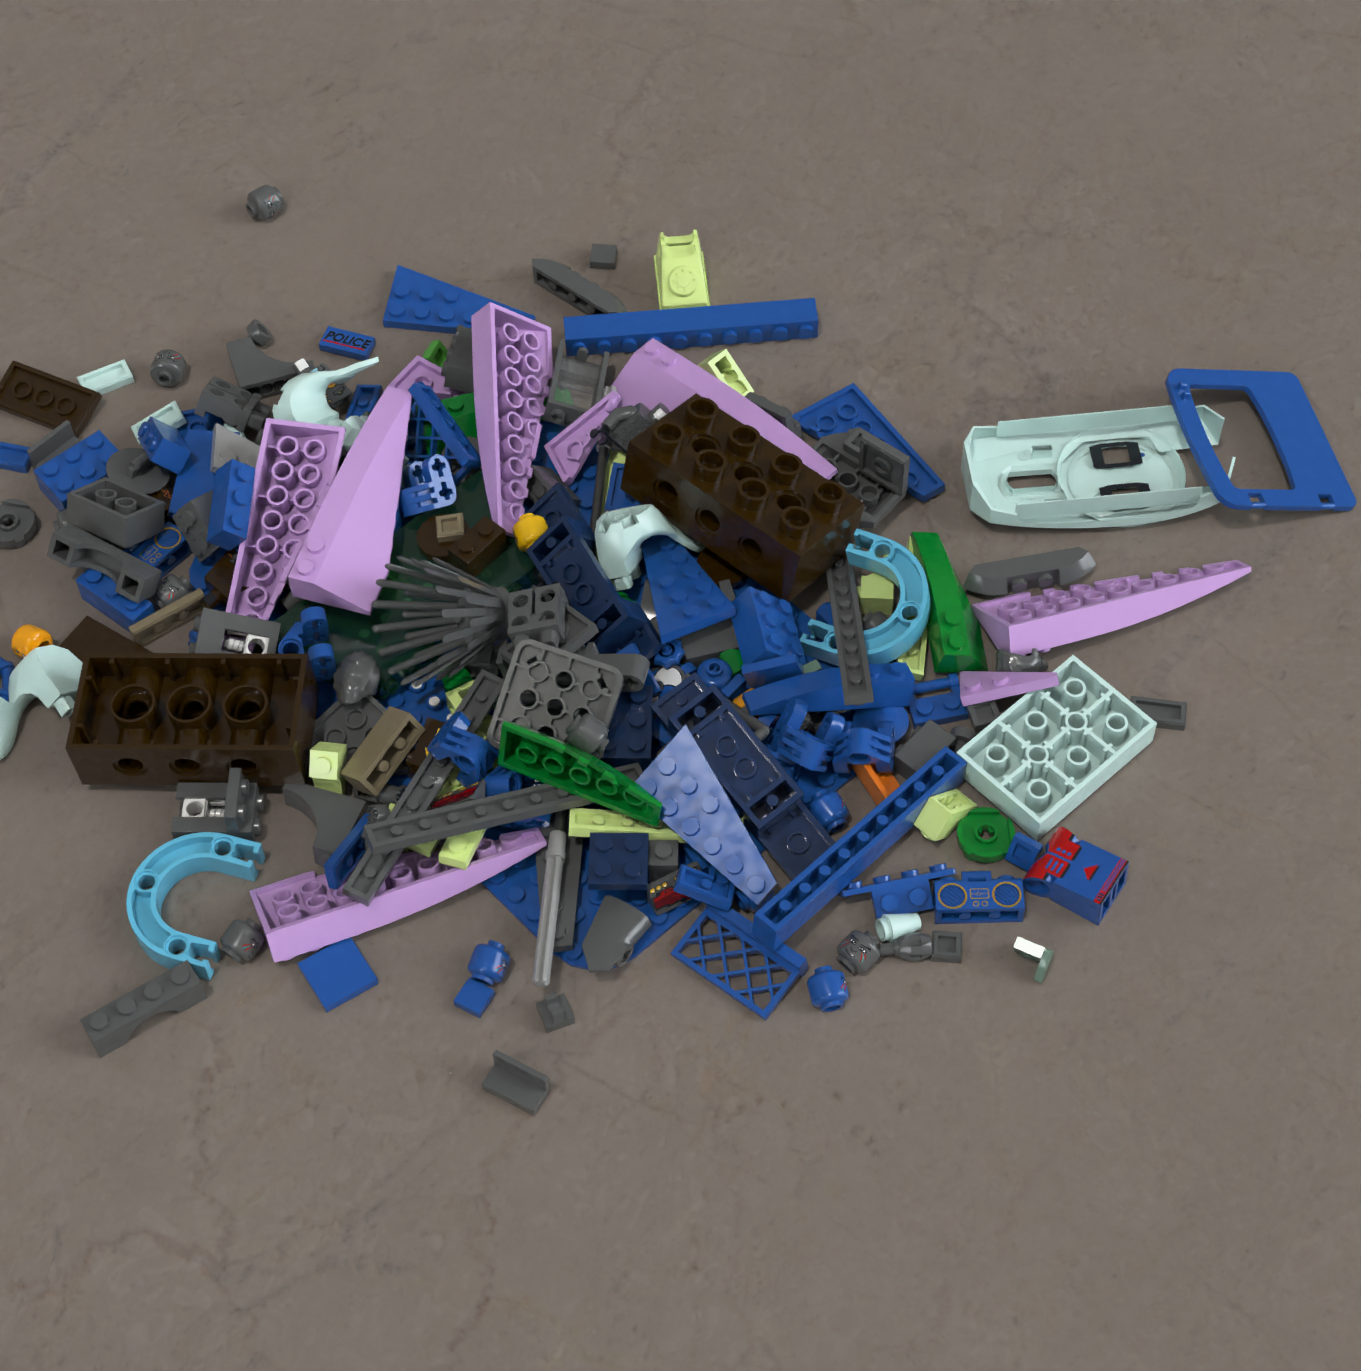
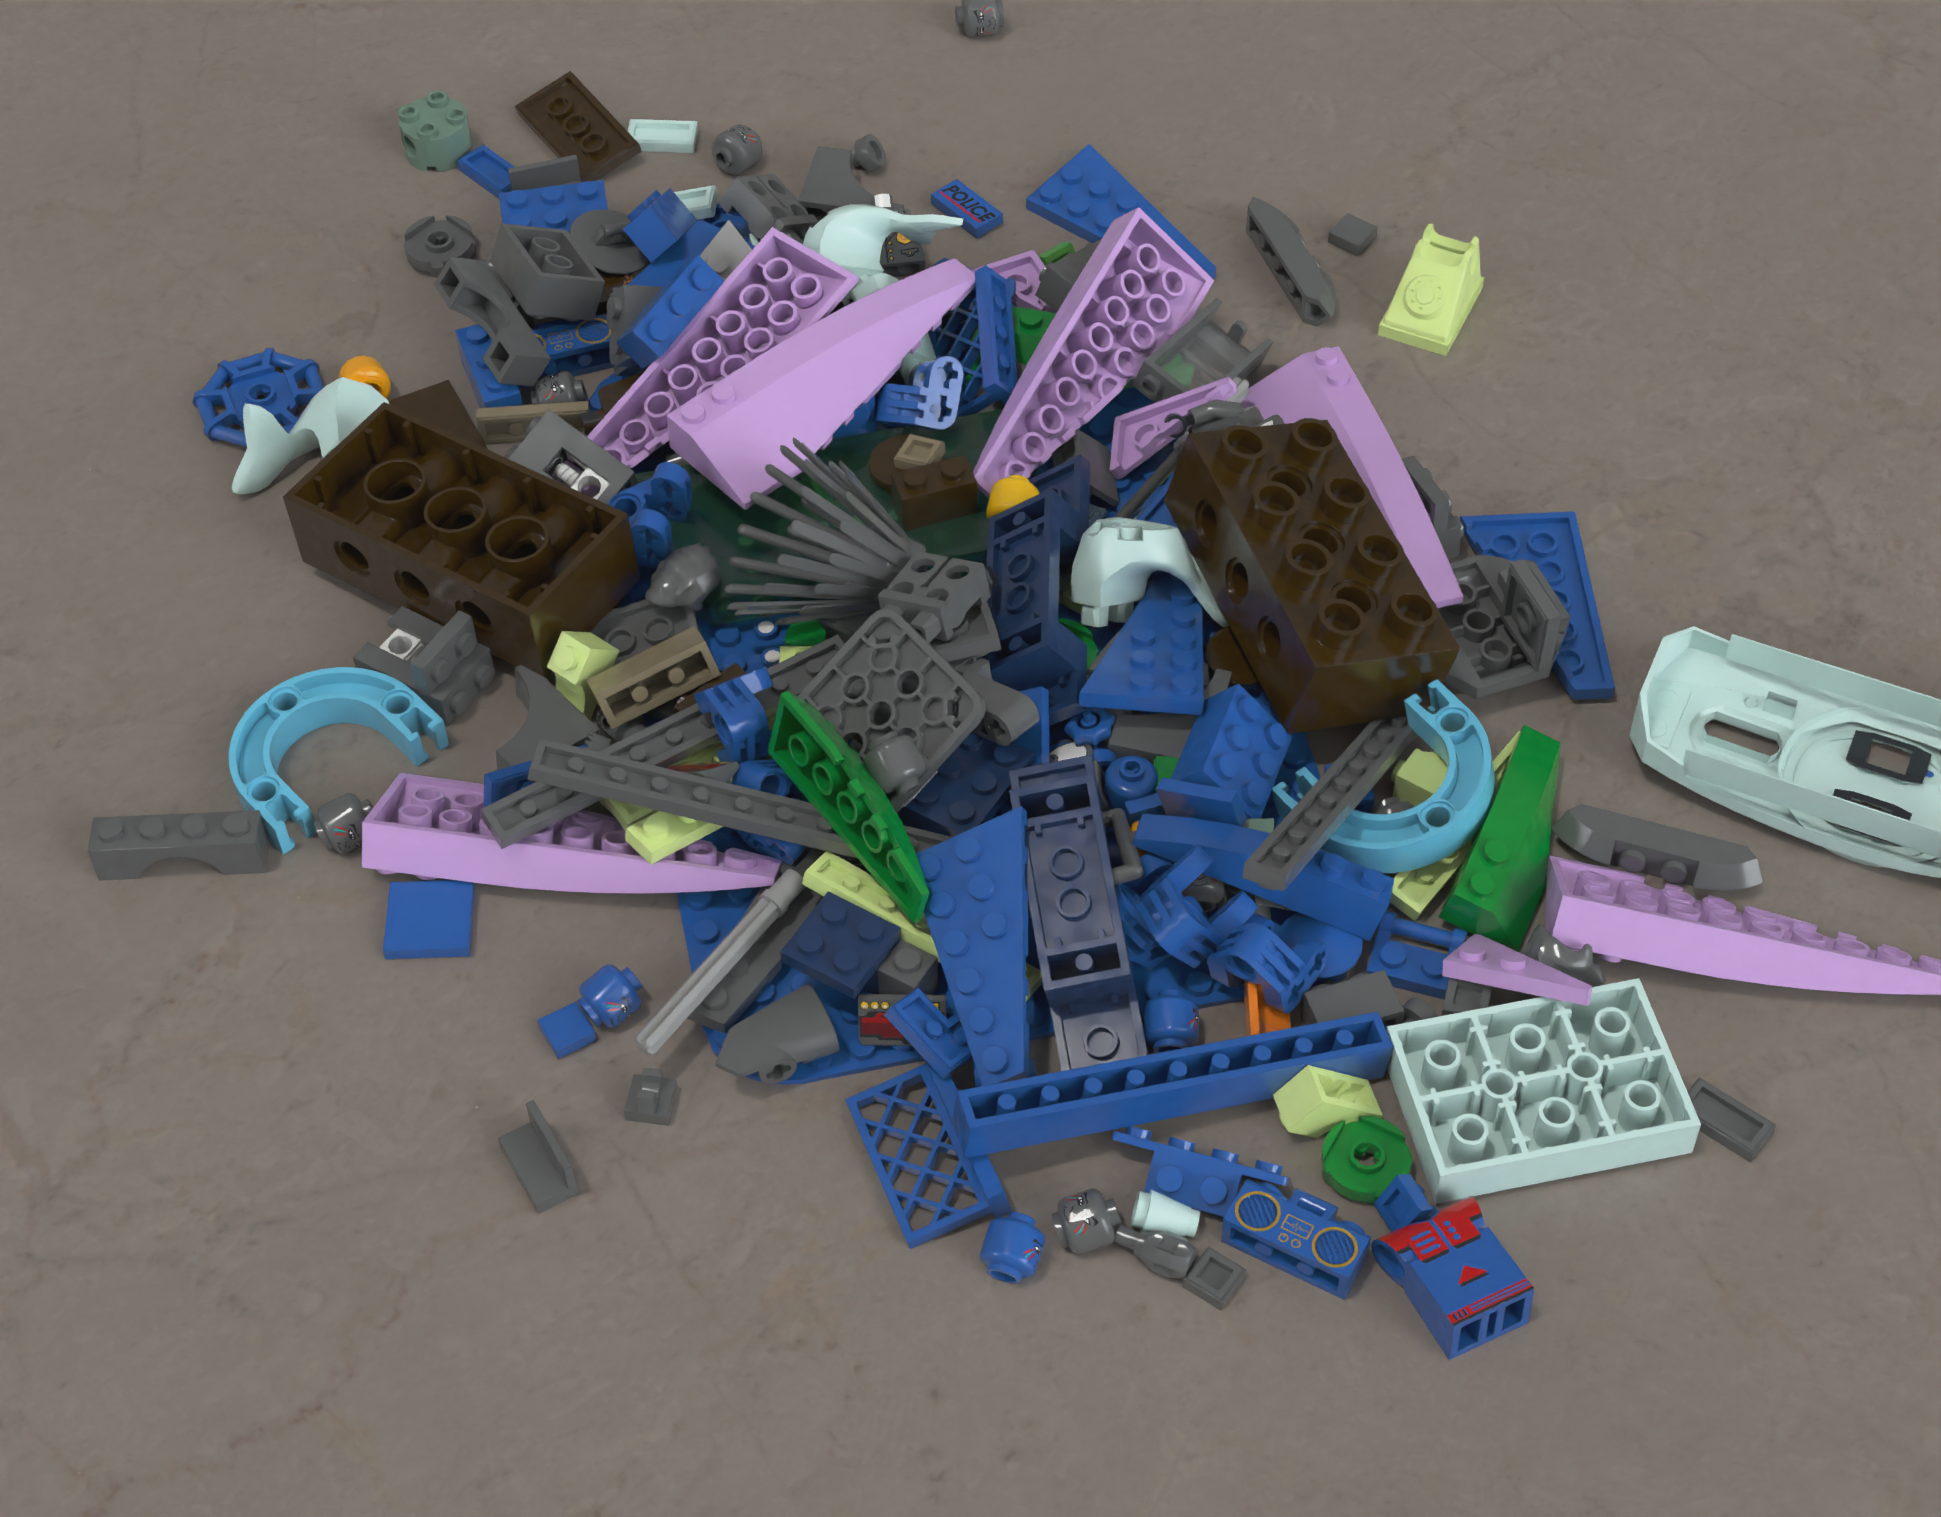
camera: 30 degrees right, 5 degrees down
(692, 326) = (1412, 359): blue brick -> none
(725, 369) = (1408, 428): yellowish green arch -> none
(1037, 953) = (1335, 1360): sand green tile -> none

